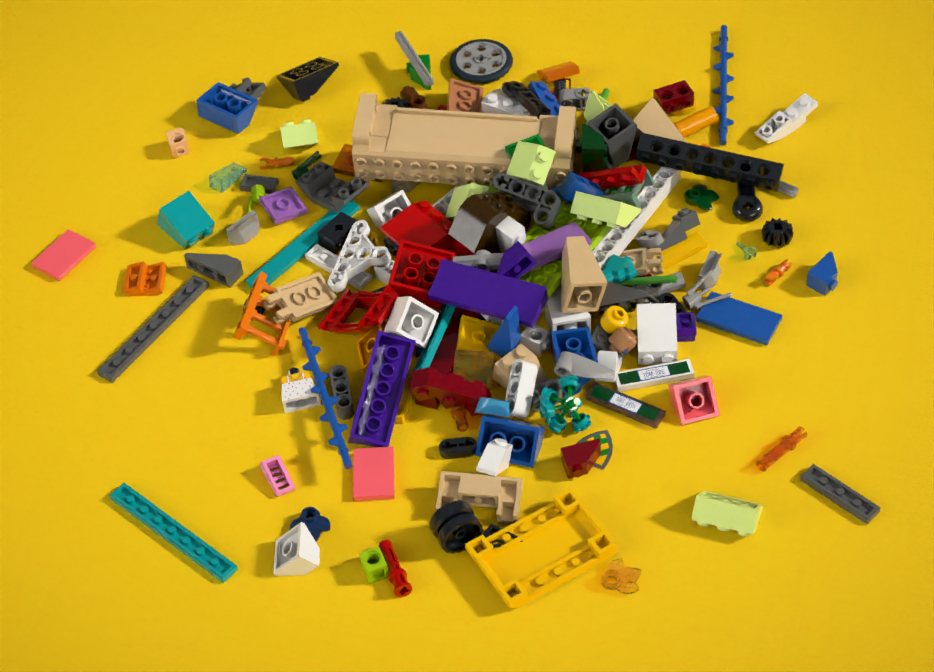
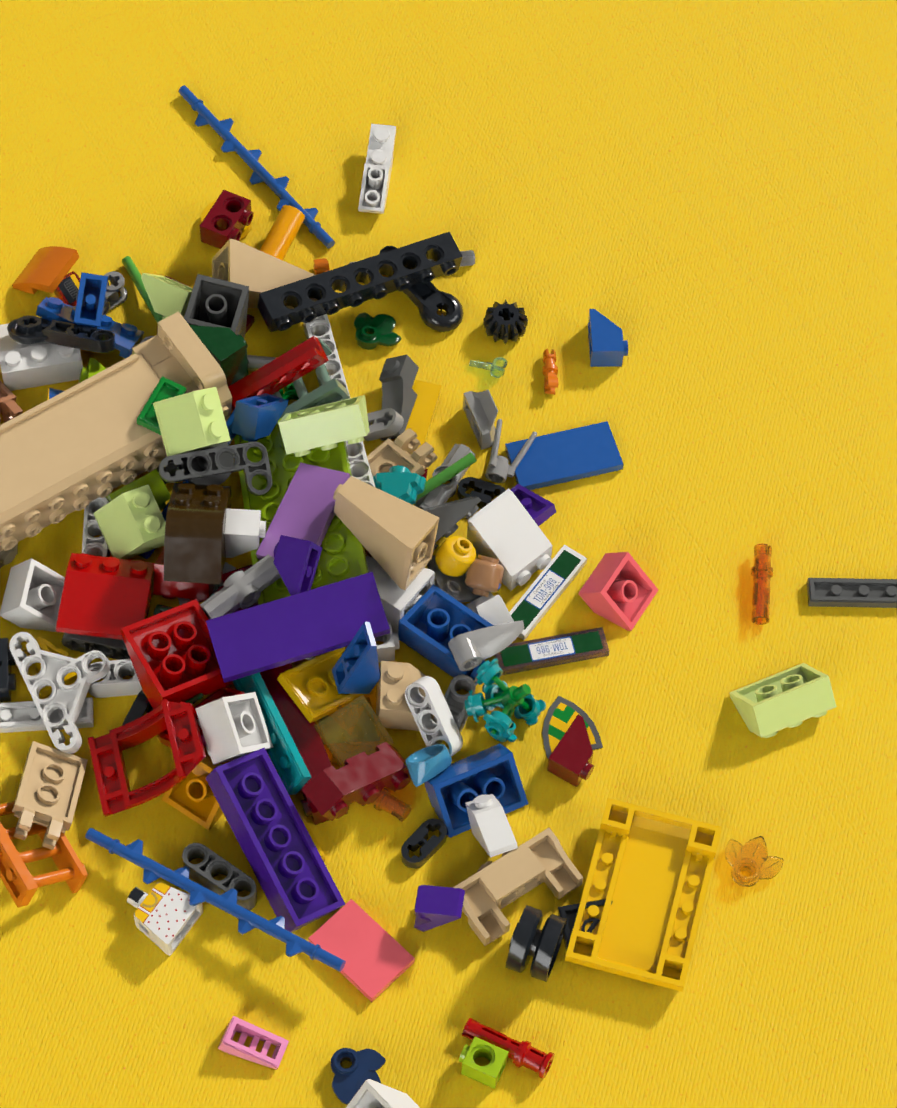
camera: 50 degrees left, 10 degrees up
(424, 472) = (437, 906): none -> dark purple slope
(557, 91) = (91, 300): none -> blue slope

